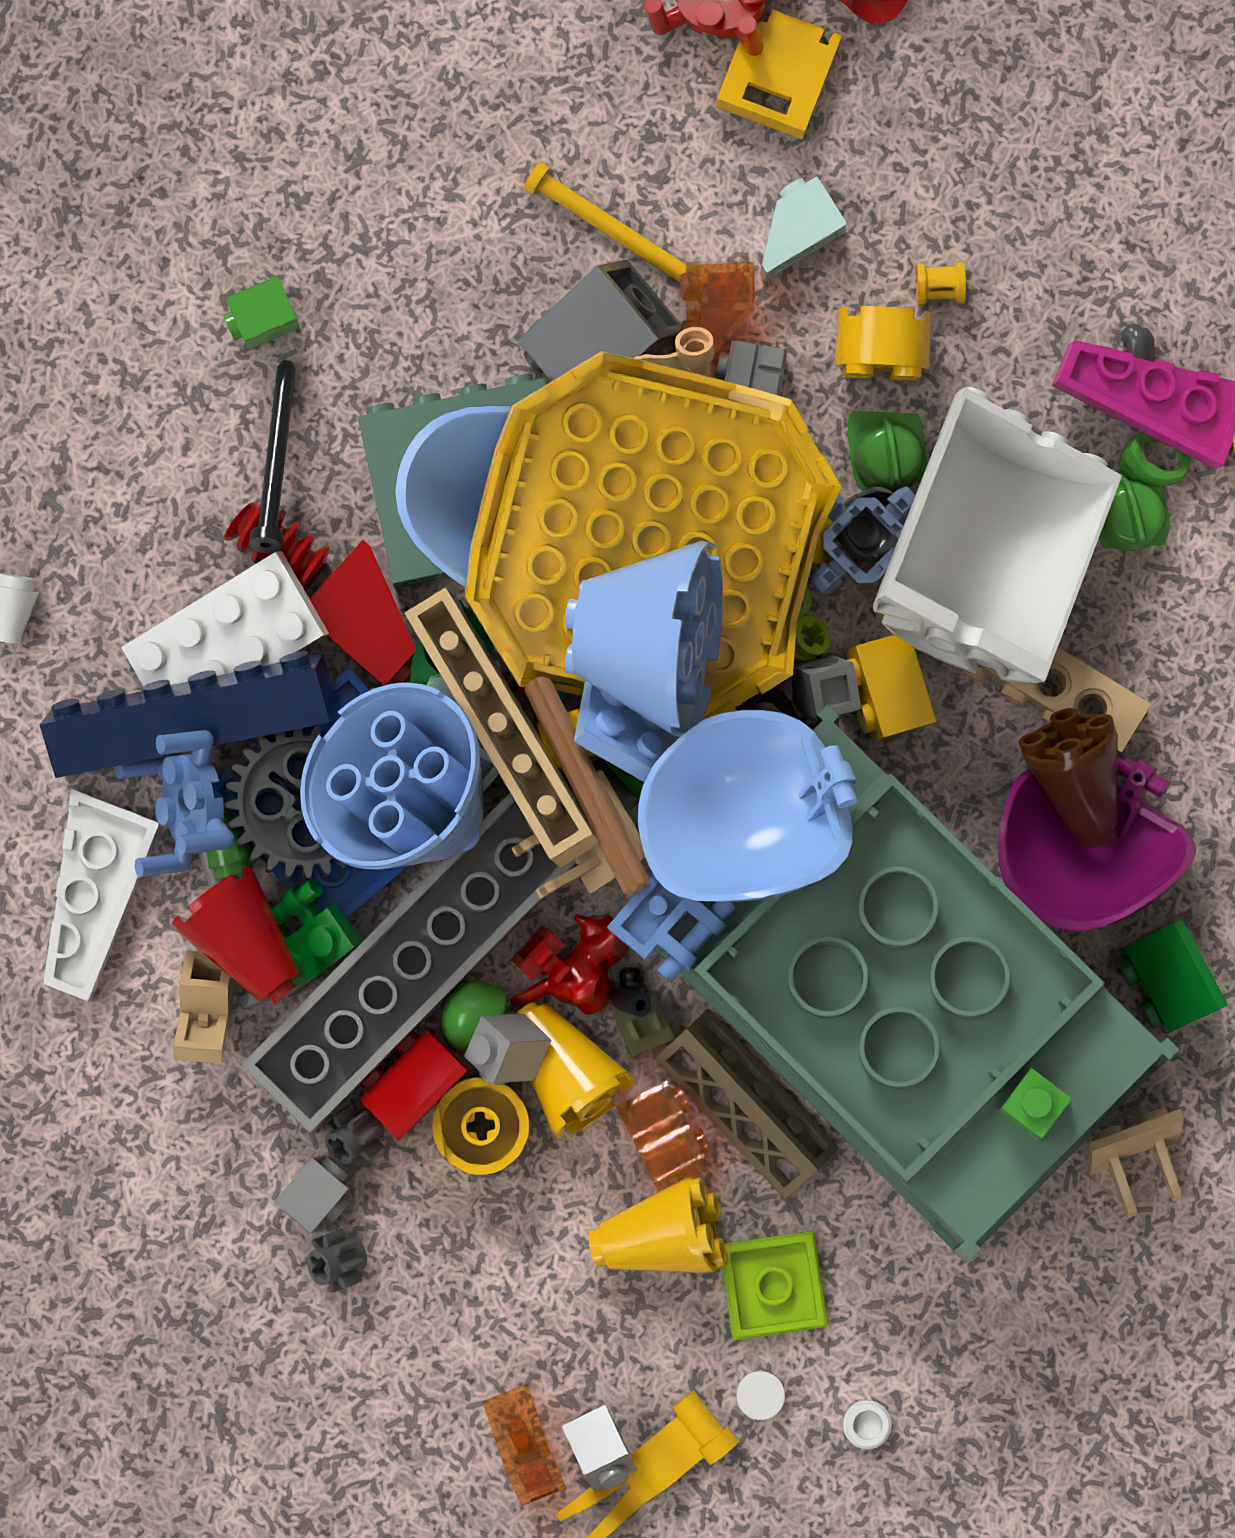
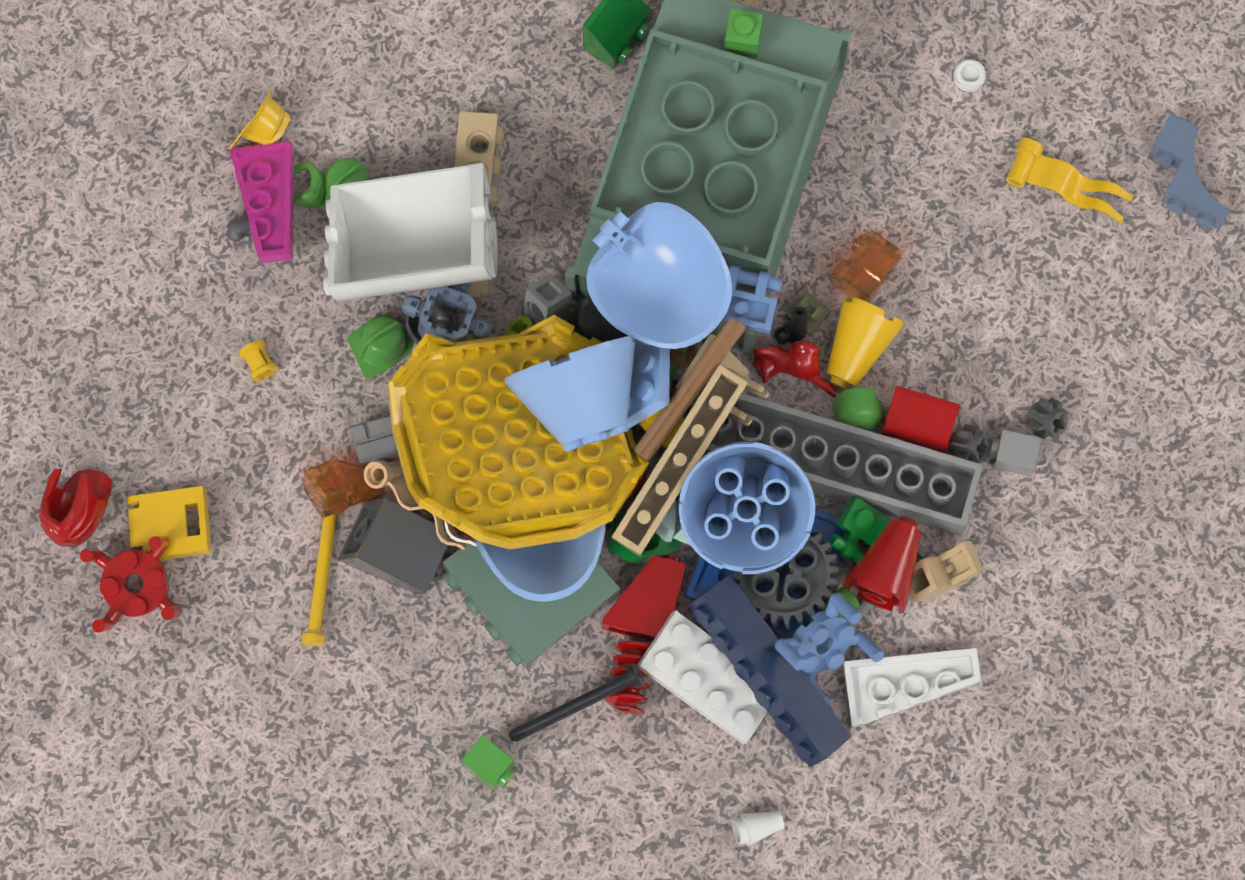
camera: 115 degrees left, 10 degrees down
(463, 1147) = (922, 355): yellow brick -> none
(507, 1048) = (868, 373): light grey brick -> none
(524, 1445) = (1092, 257): clear orange slope -> none
(541, 956) = (799, 392): red plate -> none
(600, 1449) = (1071, 210): brick -> none
(663, 1233) = (926, 238): yellow cone -> none
(752, 1098) = (816, 226): dark tan fence -> none
(760, 1395) = (986, 142): white tile -> none
(774, 1286) = (919, 166): lime tile -> none
(800, 225) = (264, 461): light aqua slope -> none
(883, 341) = (315, 371): yellow brick -> none
(890, 688) = (526, 264): yellow brick -> none
(1078, 771) = (521, 130): reddish brown cone -> none
(1097, 885) = (565, 99): magenta piece -> none

